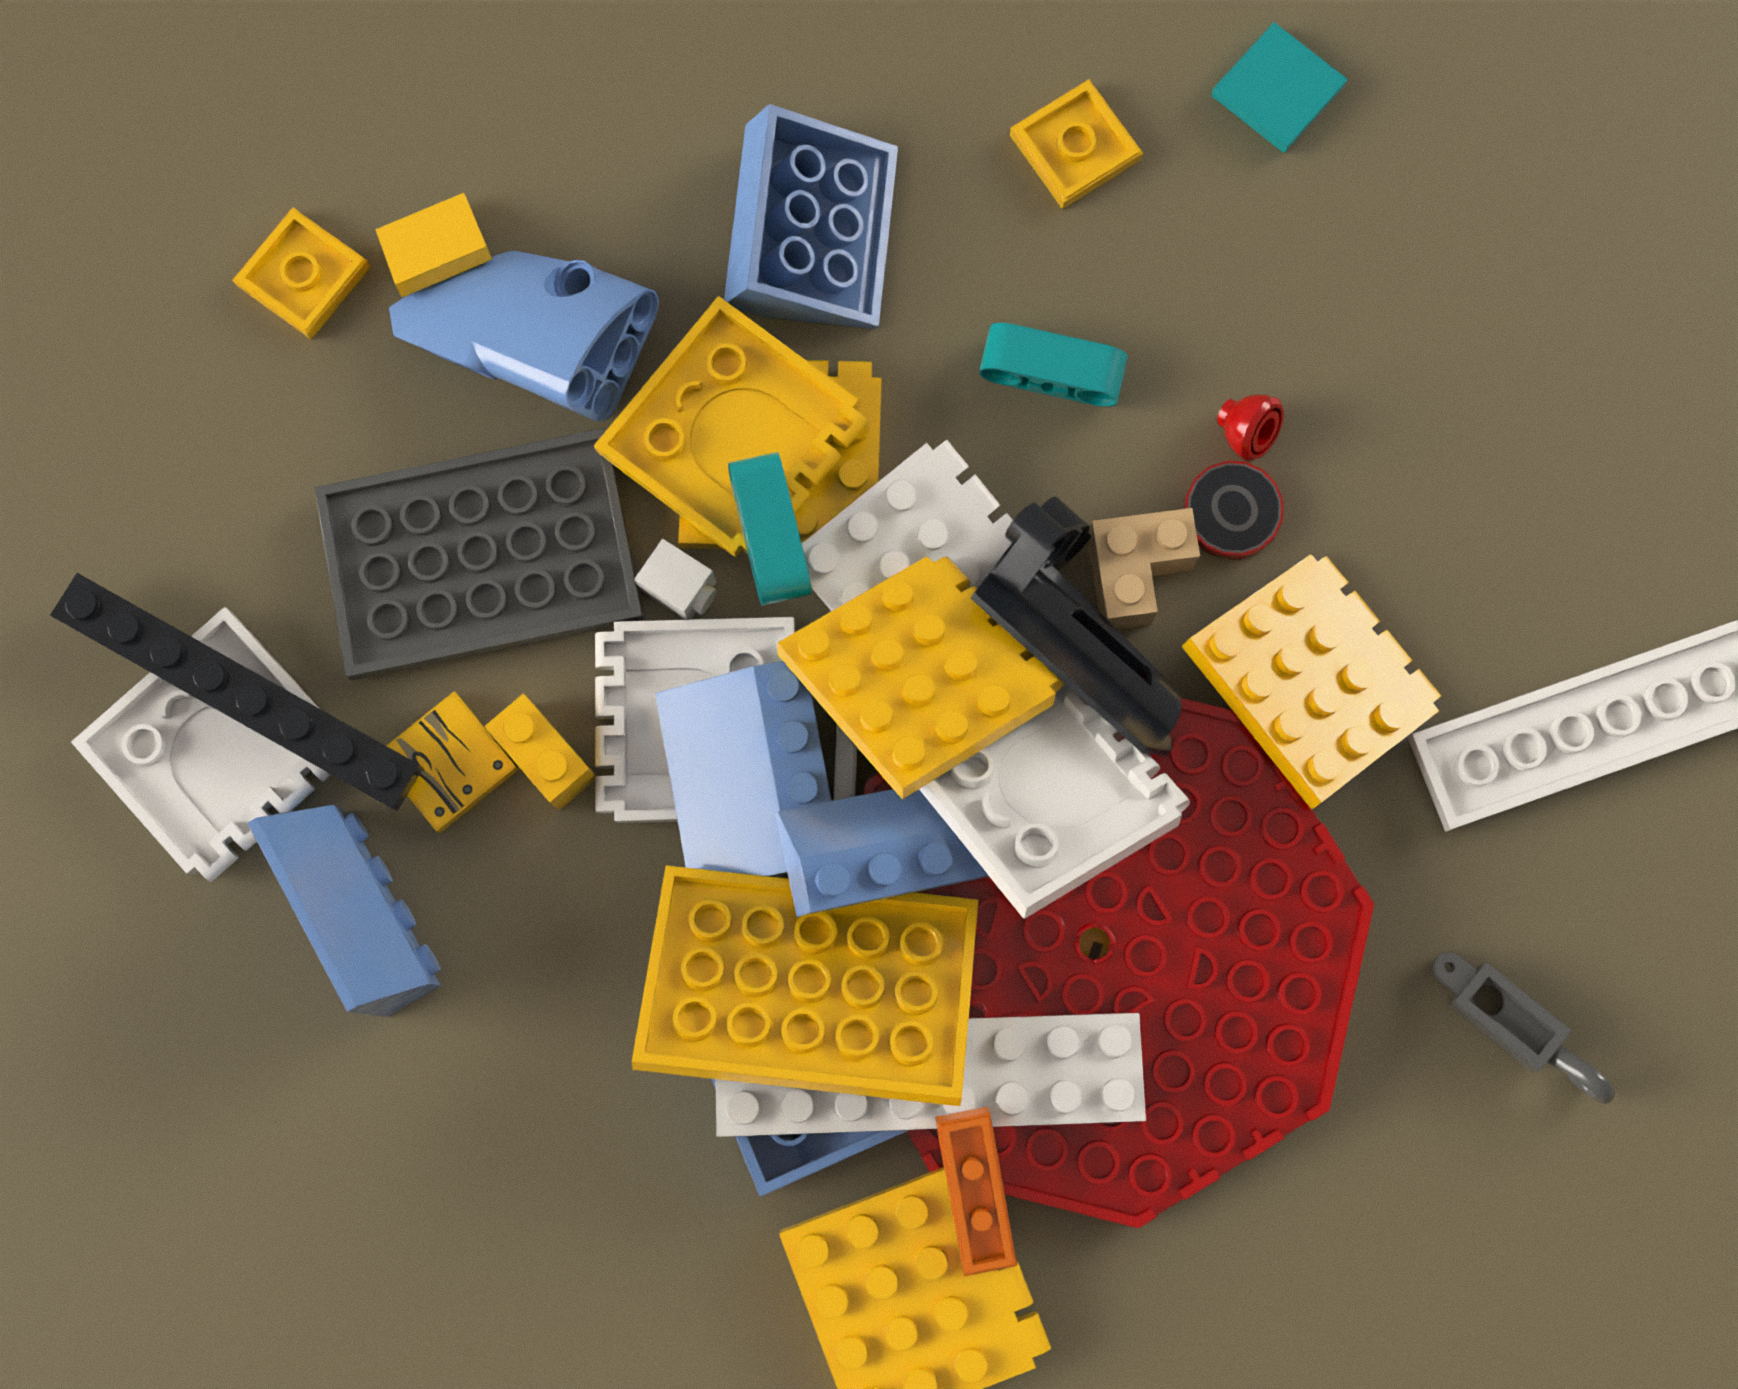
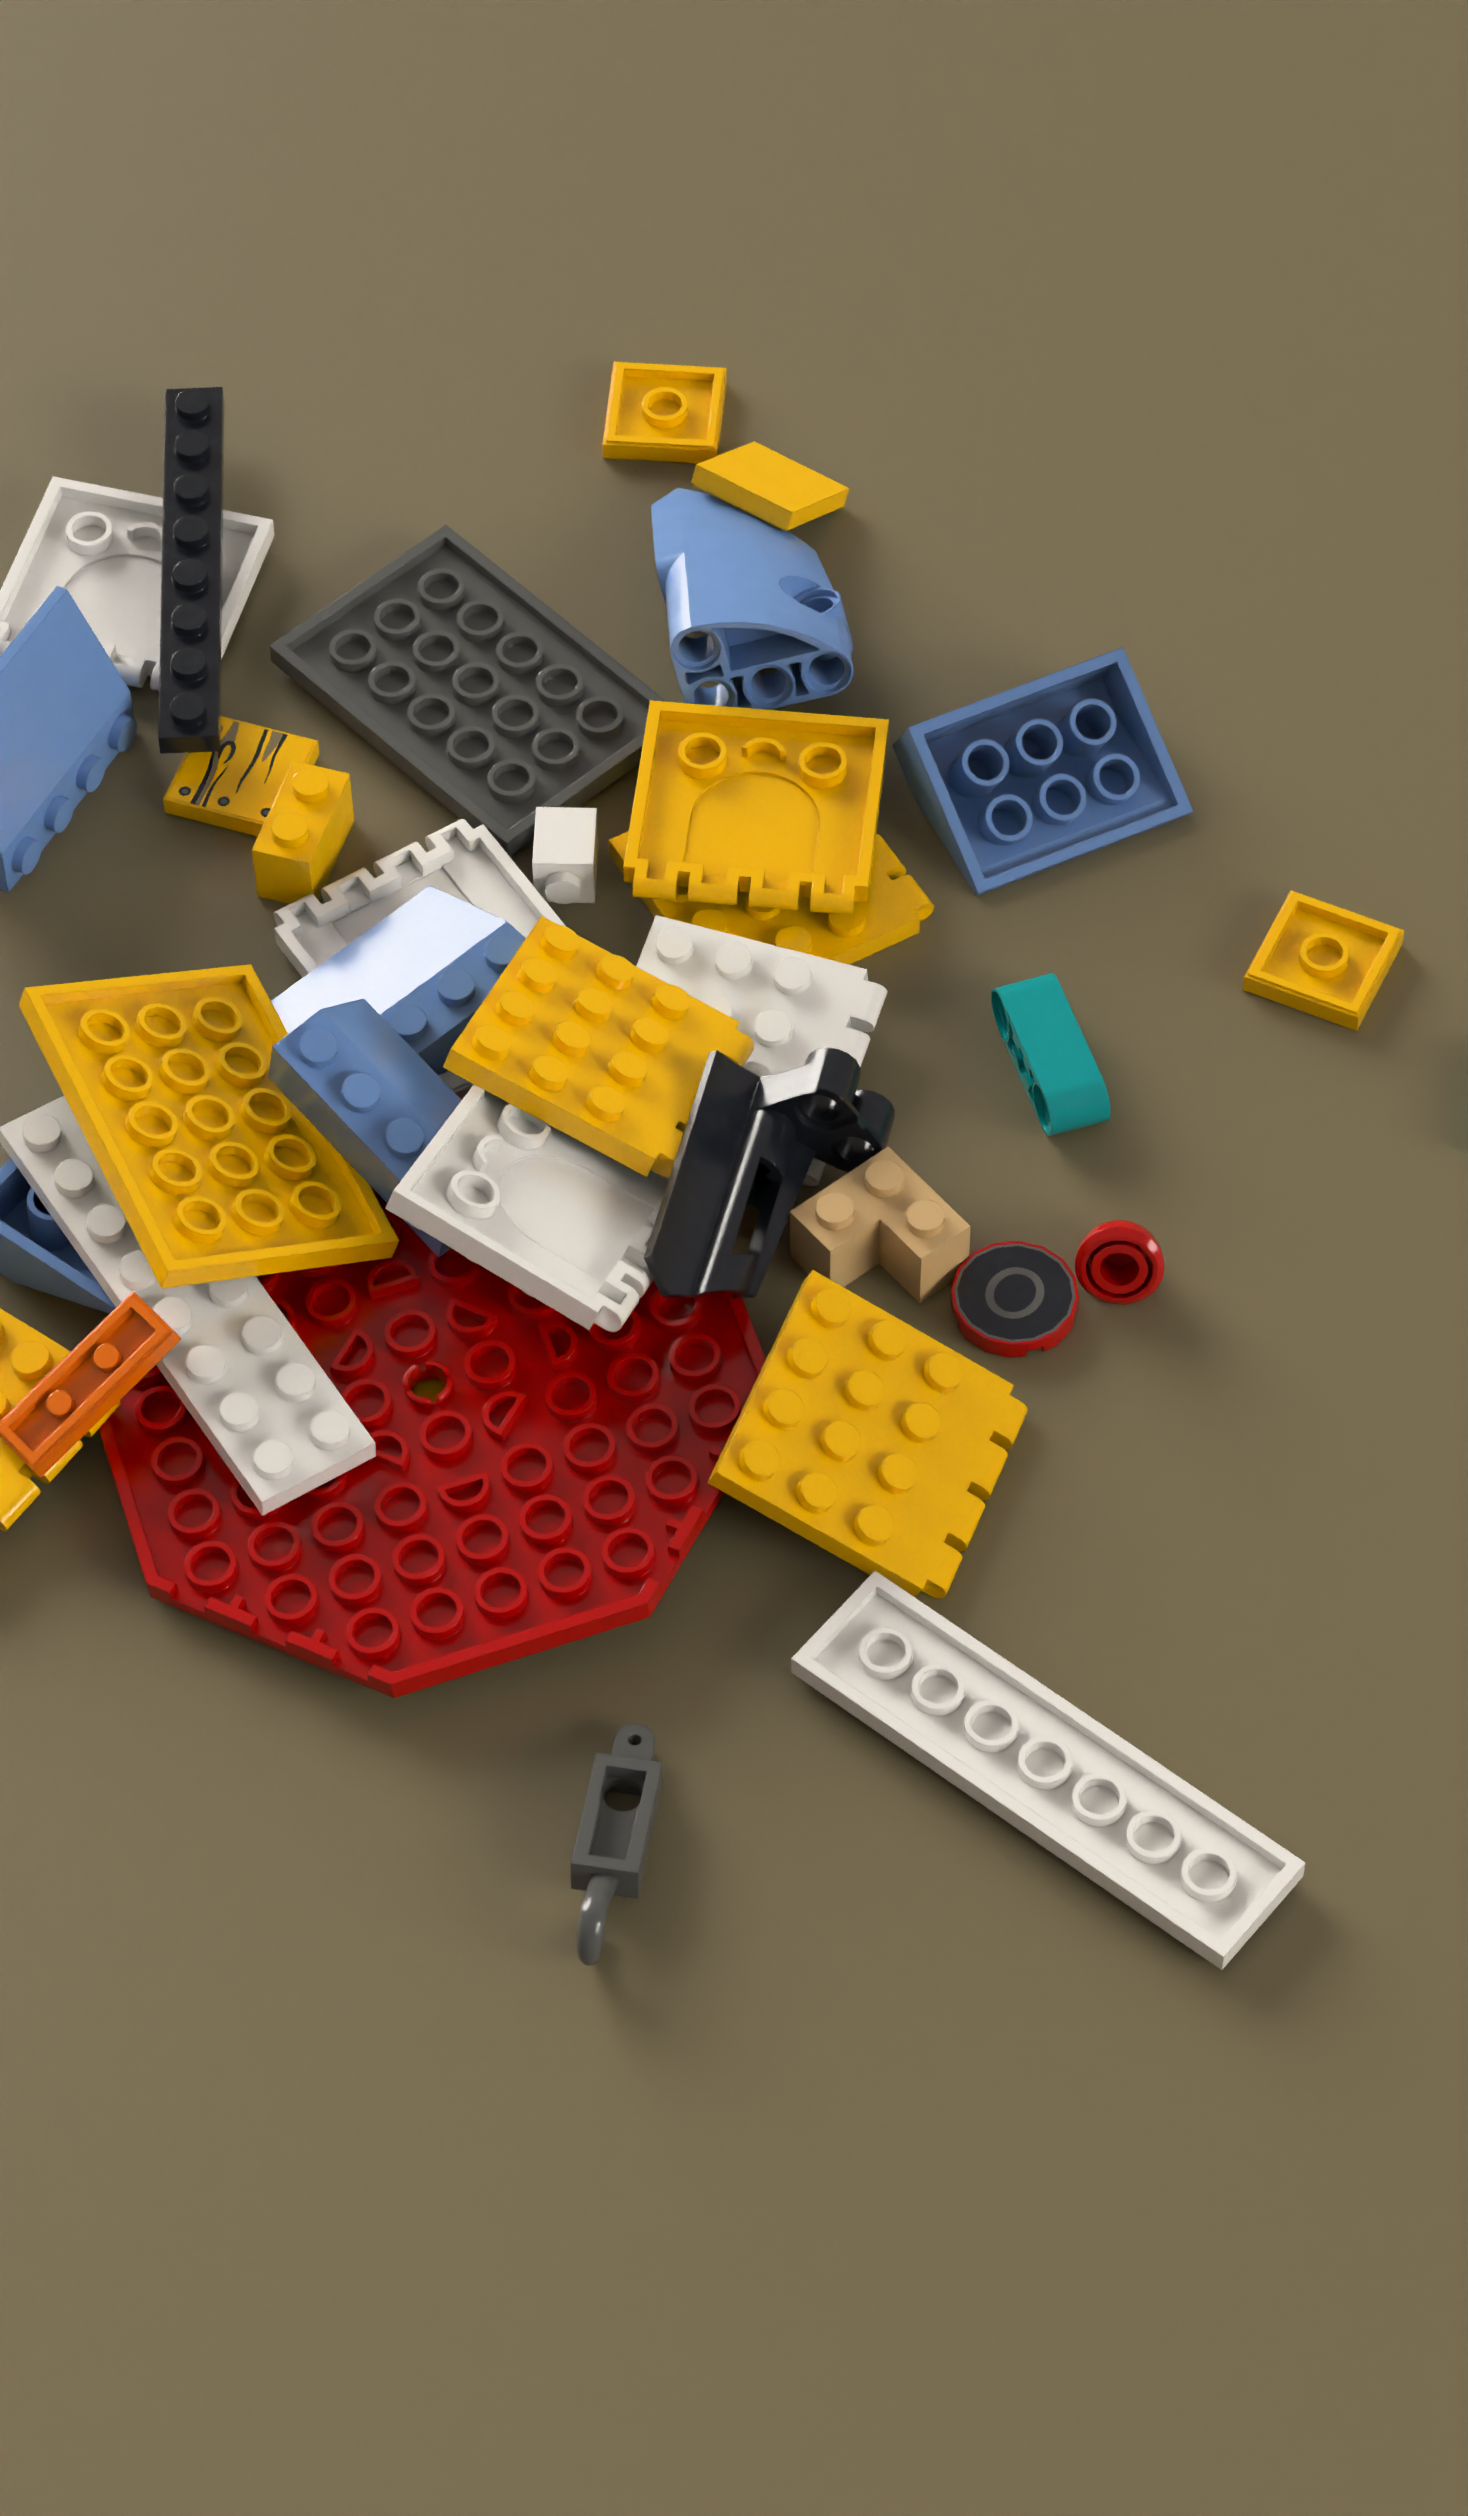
camera: 55 degrees right, 25 degrees down
(769, 528) = (664, 869): teal beam -> none

